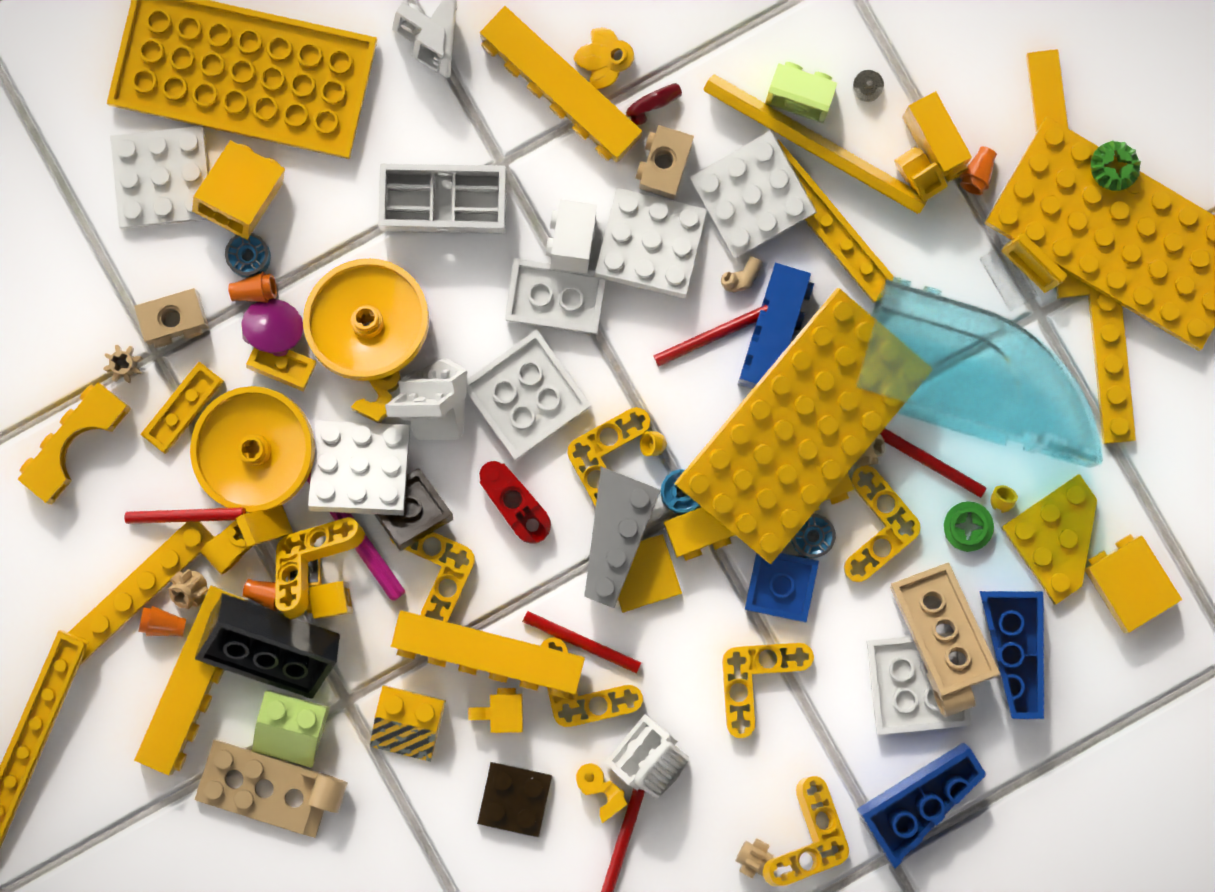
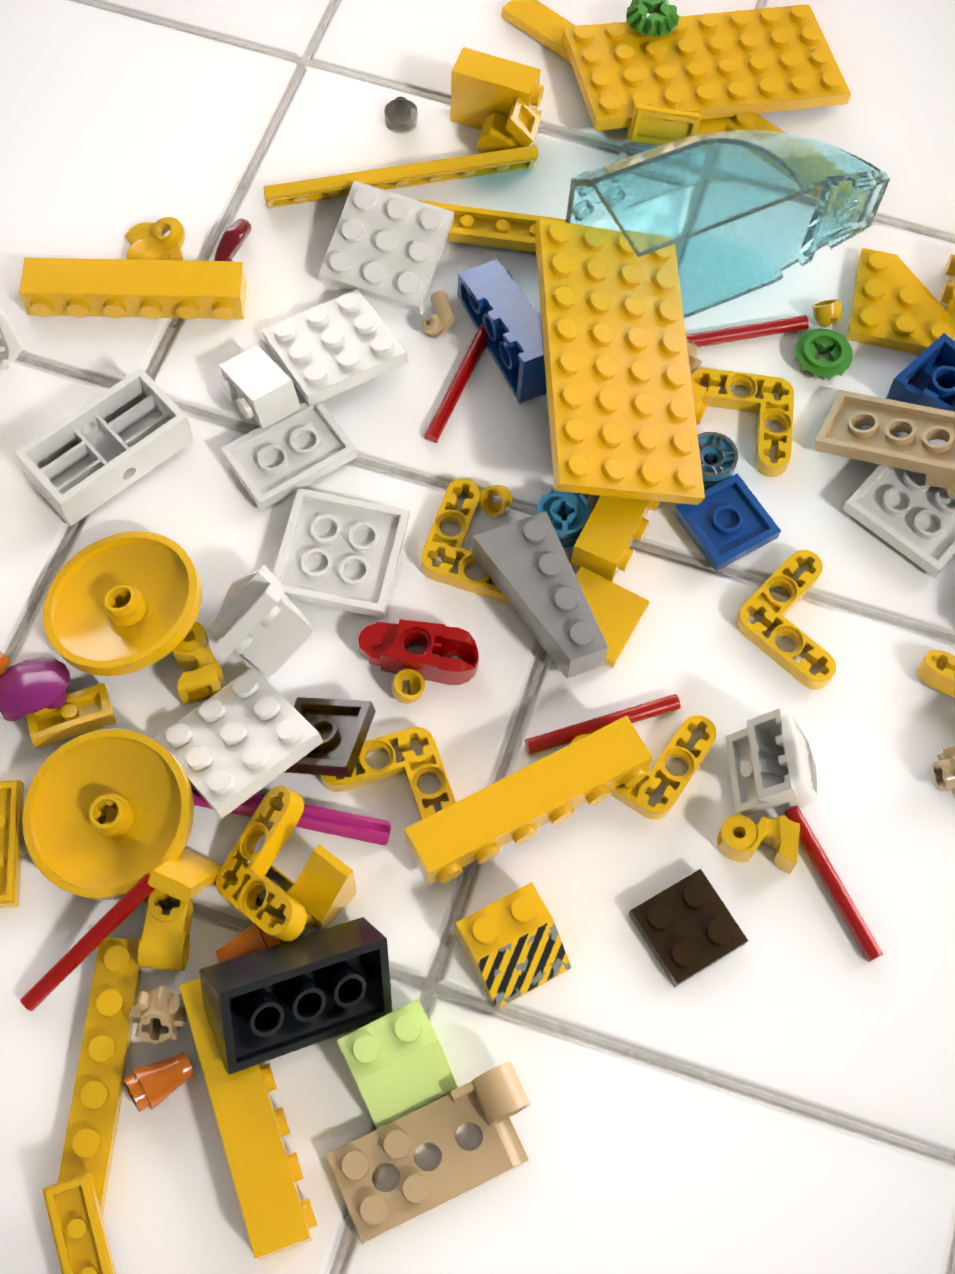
camera: 50 degrees left, 20 degrees down
(492, 523) = (415, 686): none -> yellow hinge
(504, 711) = (596, 850): yellow brick -> none
(675, 145) = (286, 277): tan brick -> none
(801, 92) = (354, 146): yellowish green slope -> none
(979, 171) = (554, 108): orange cone -> none

